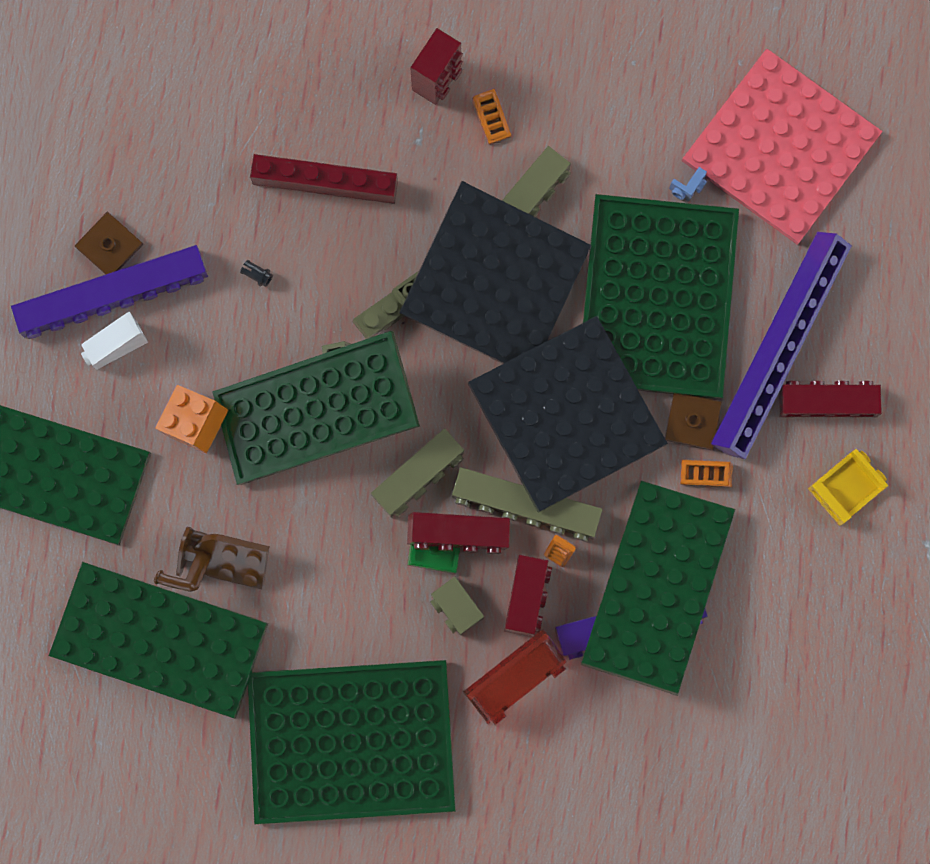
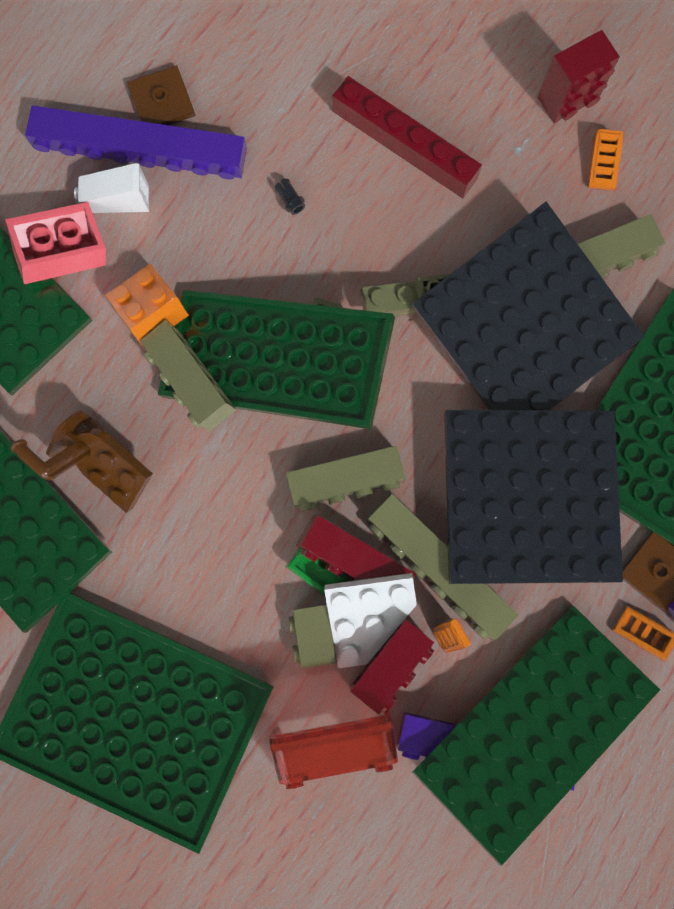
camera: 30 degrees right, 0 degrees up
(93, 406) = (56, 242): none -> coral slope
(255, 457) = (187, 376): none -> olive brick
(488, 568) = (367, 614): none -> white plate

